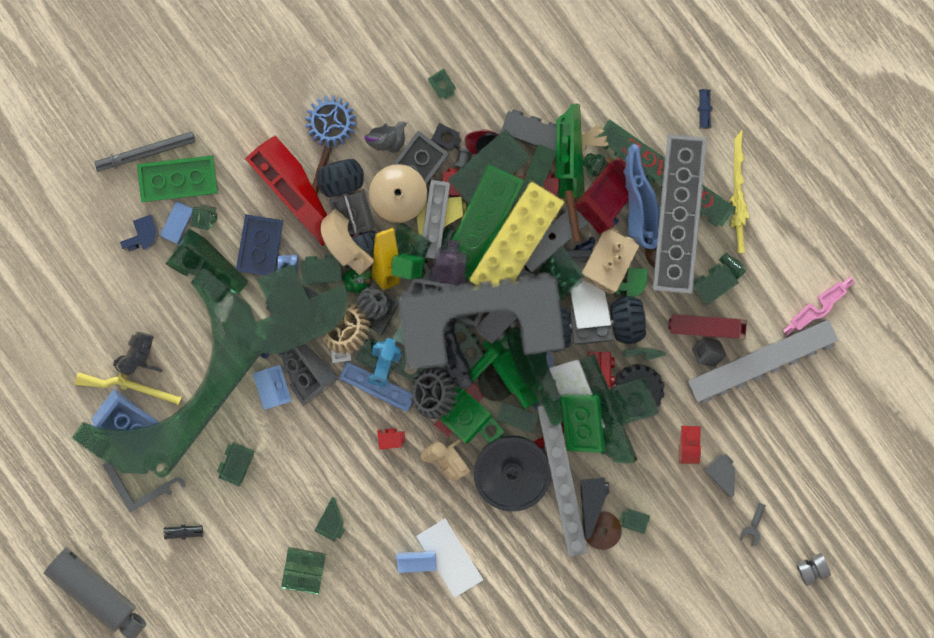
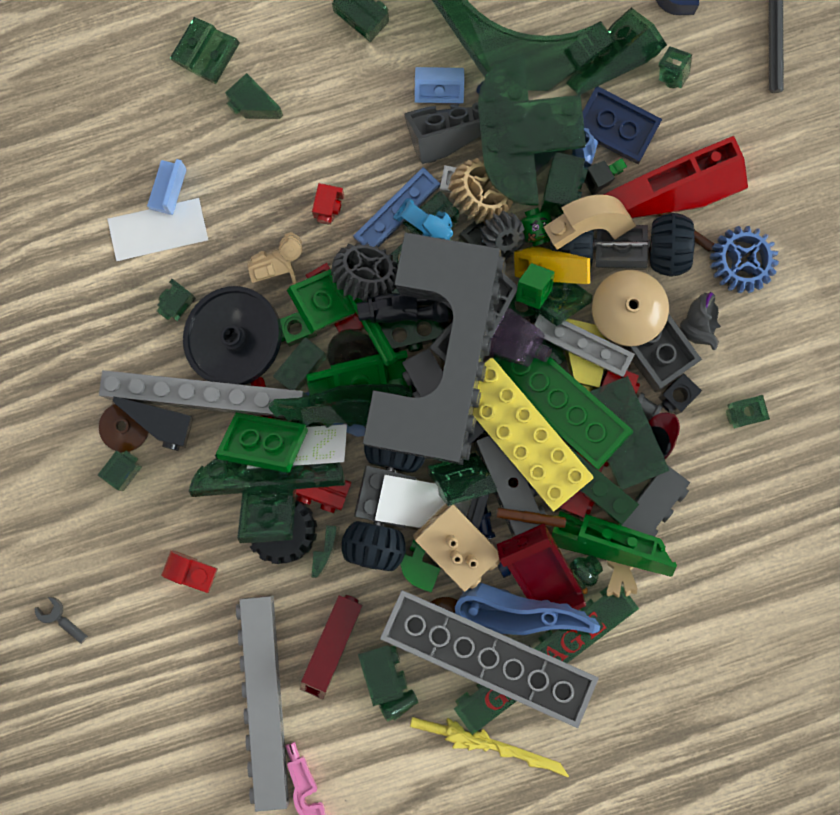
camera: 110 degrees right, 5 degrees down
(177, 178) = (730, 54): green plate -> none
(177, 222) = (678, 35): medium blue tile -> none
(302, 245) = (602, 175): none -> pearl dark grey piece
(500, 525) = (174, 301): none -> clear green brick
(705, 108) = (611, 737): dark blue pin -> none
(709, 352) = (298, 636): dark grey panel -> none
(722, 472) = (140, 601): dark grey slope -> none

